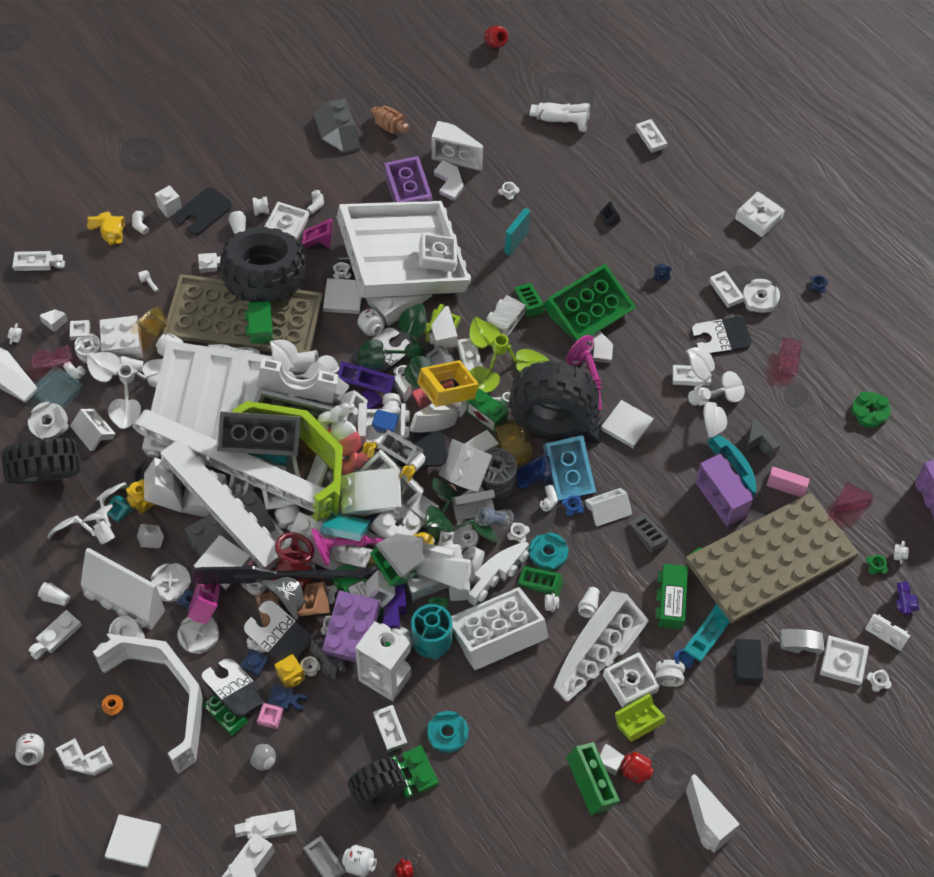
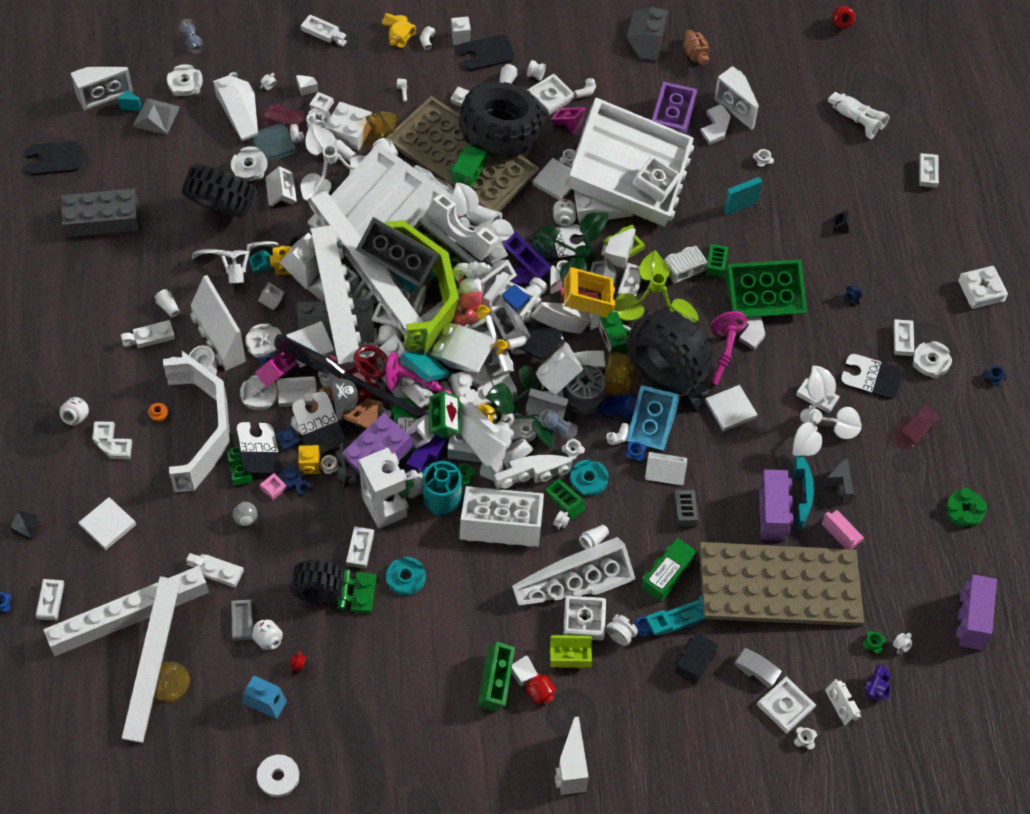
camera: 30 degrees right, 0 degrees up
(235, 613) = (295, 389): none -> white panel
(403, 552) = (454, 409): light grey slope -> none
(852, 499) = (888, 574): clear pink slope -> none

